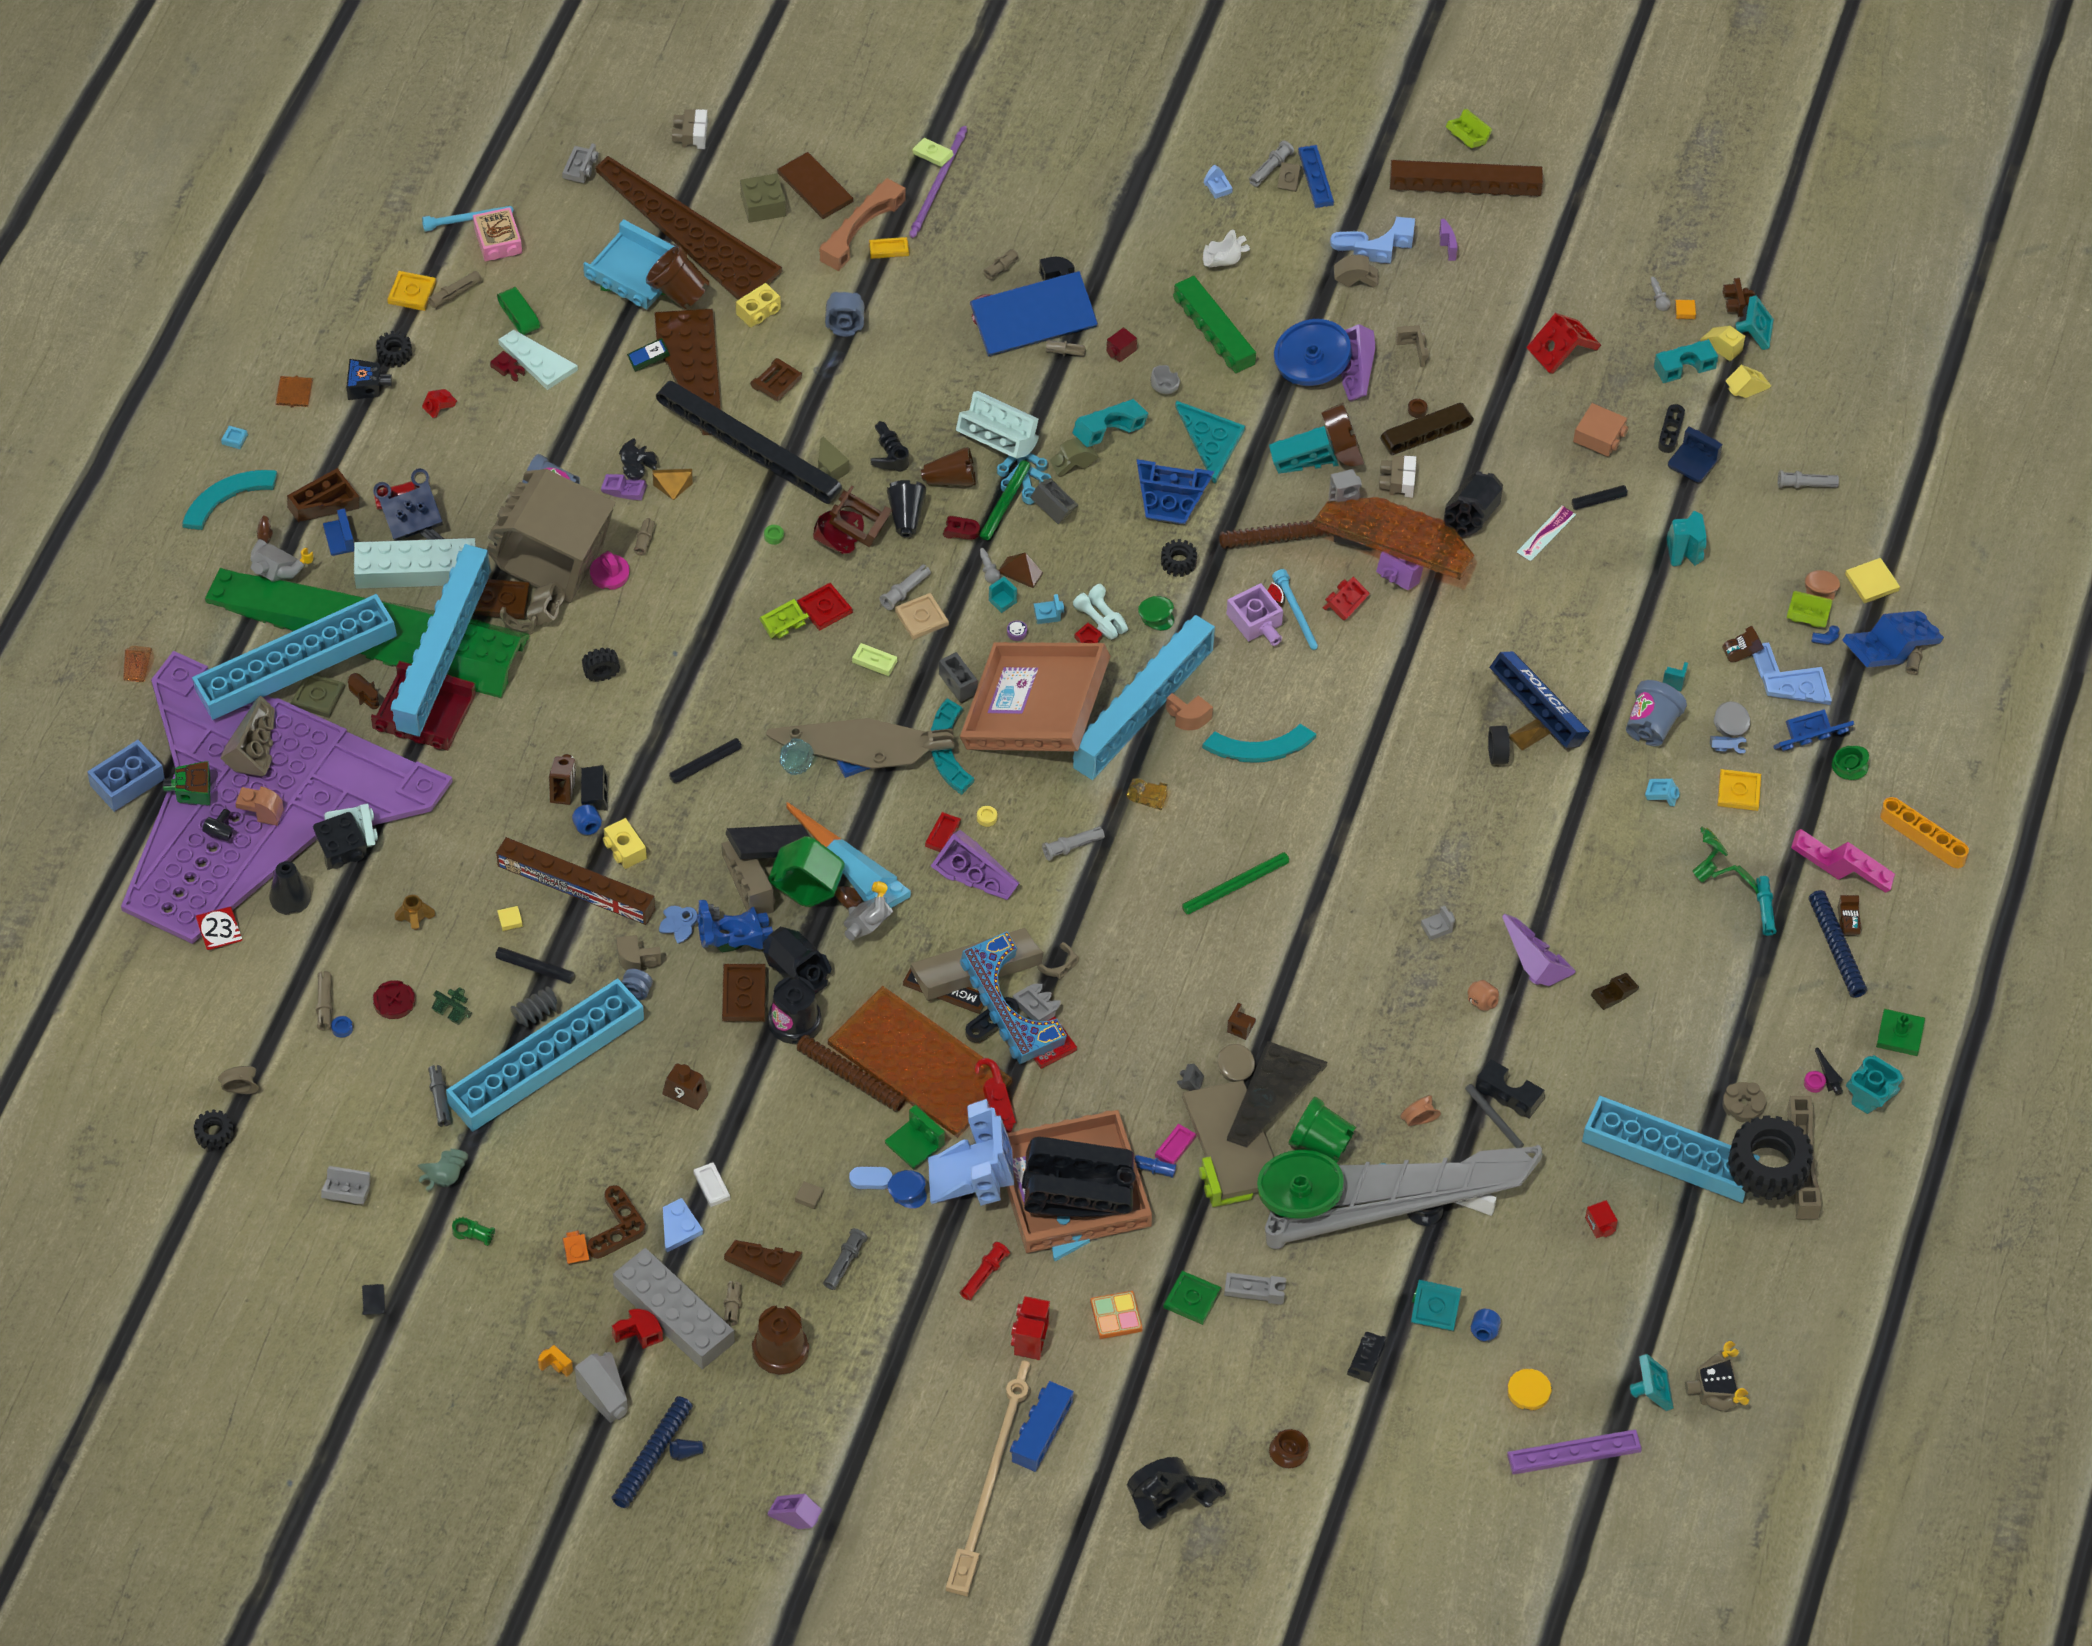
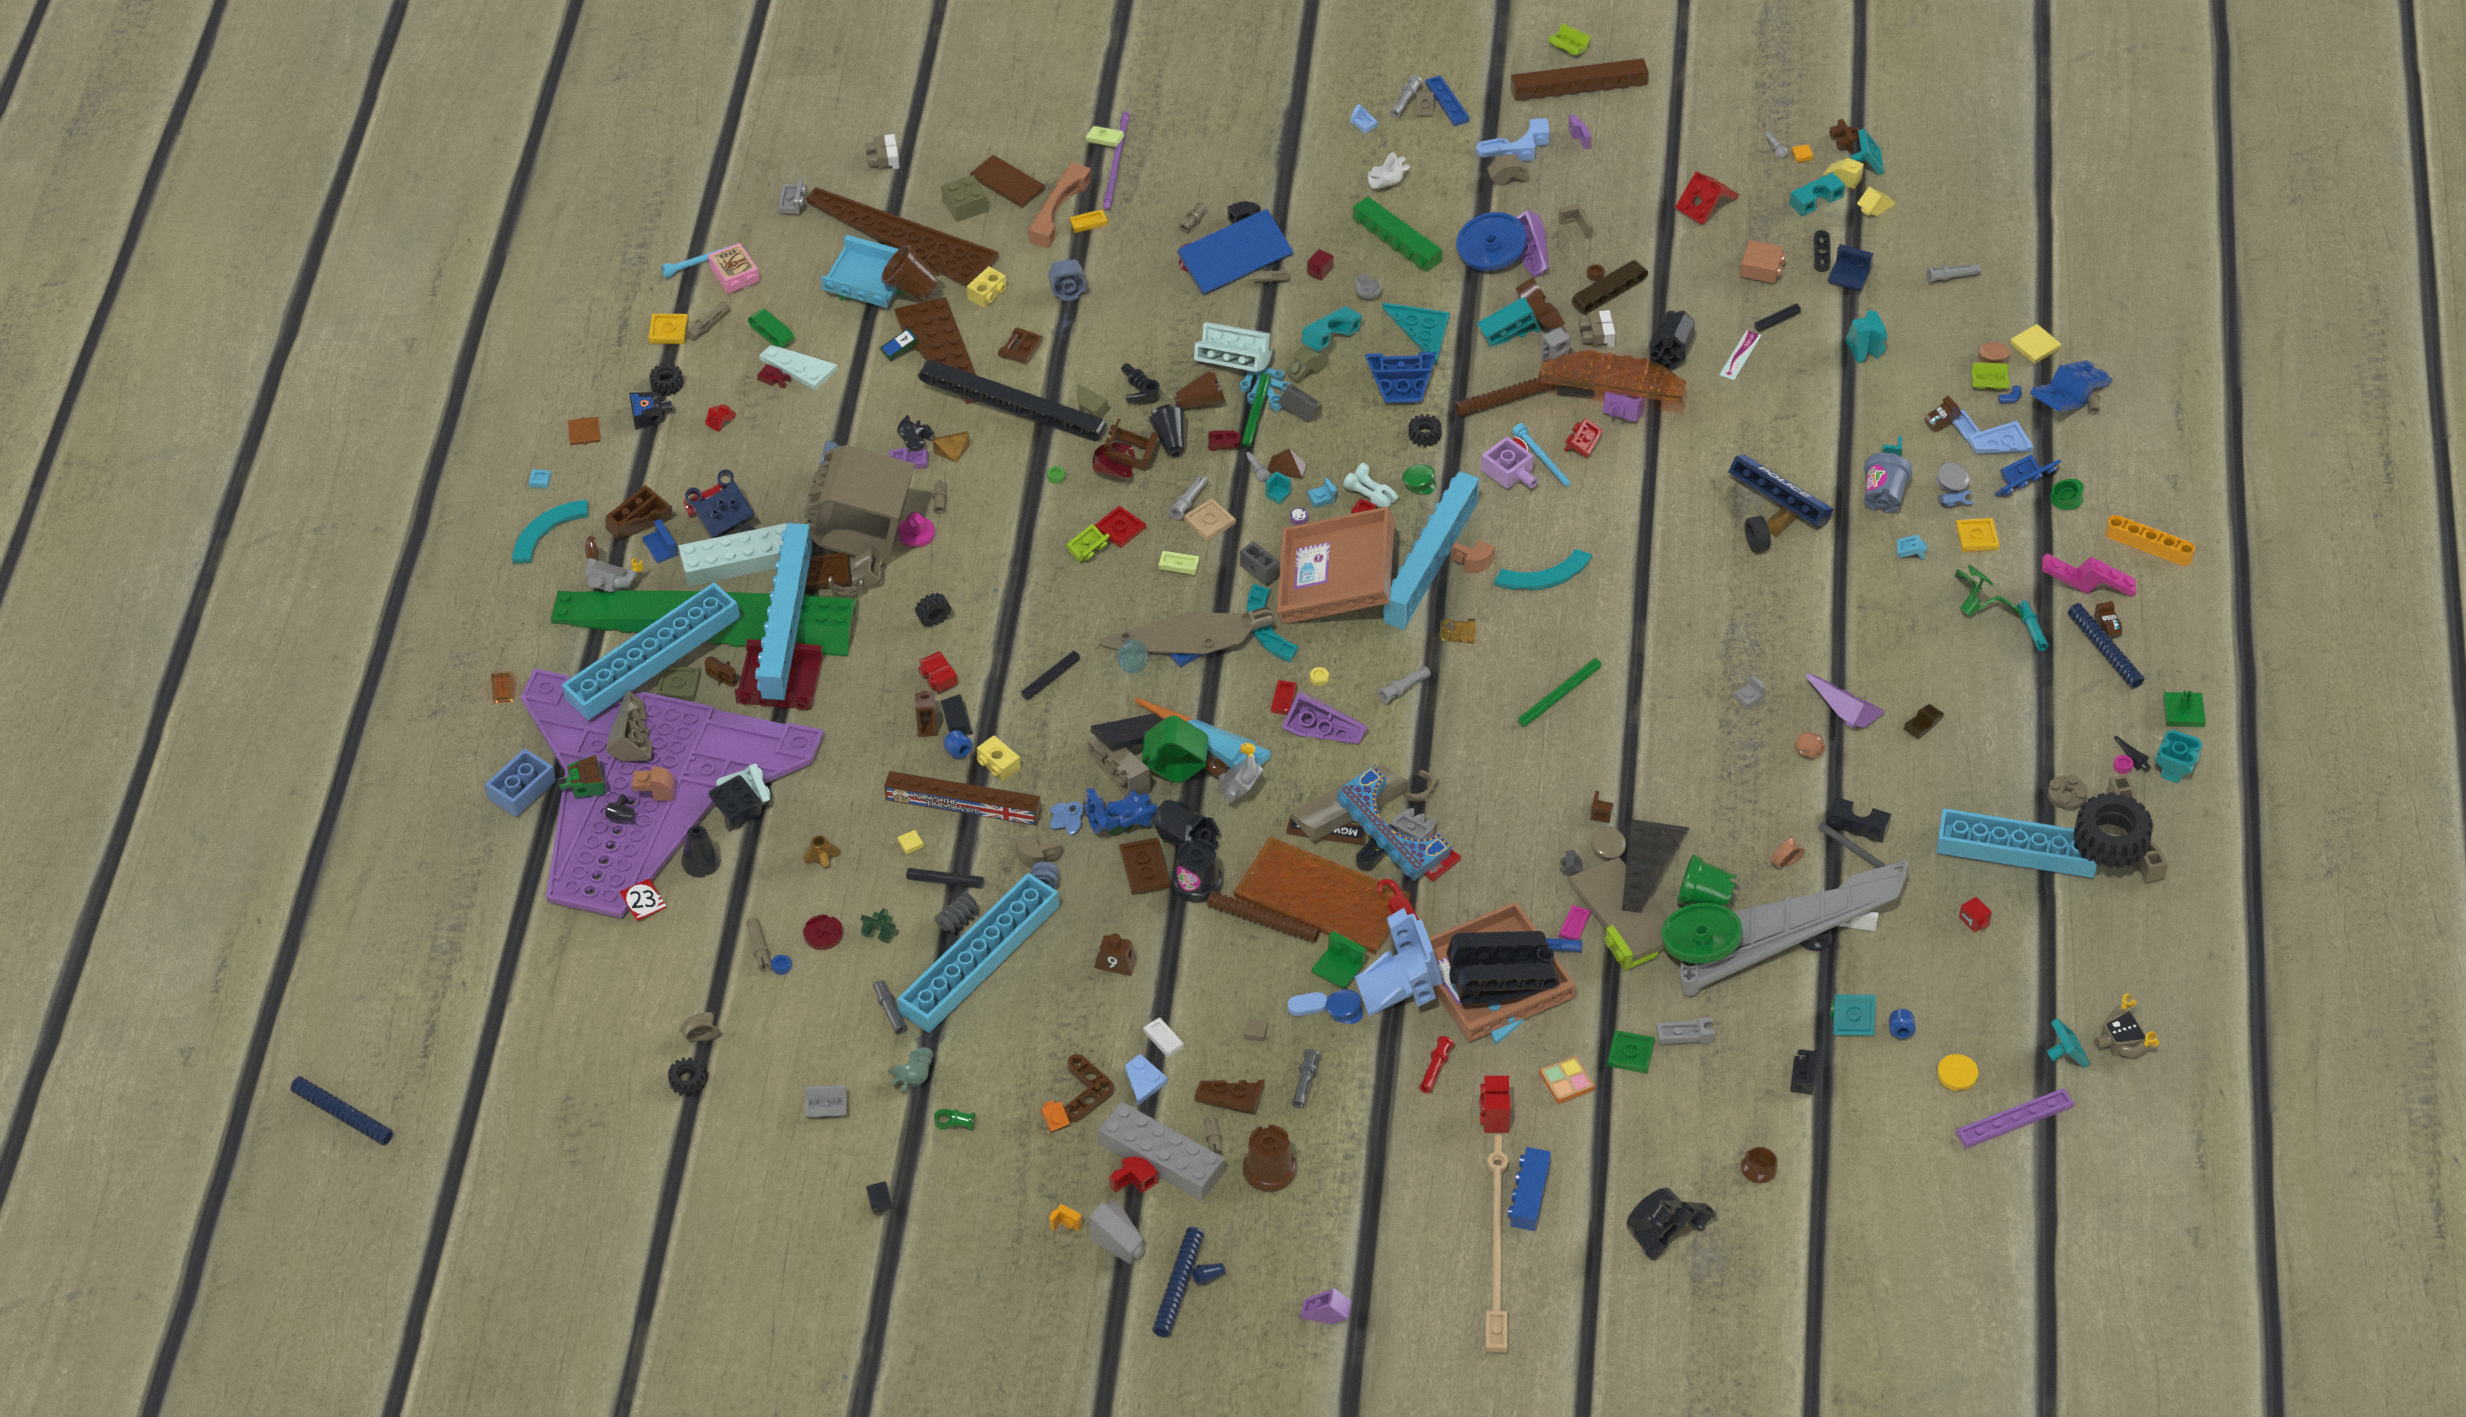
camera: 10 degrees left, 5 degrees down
(588, 735) = (937, 672): none -> red brick

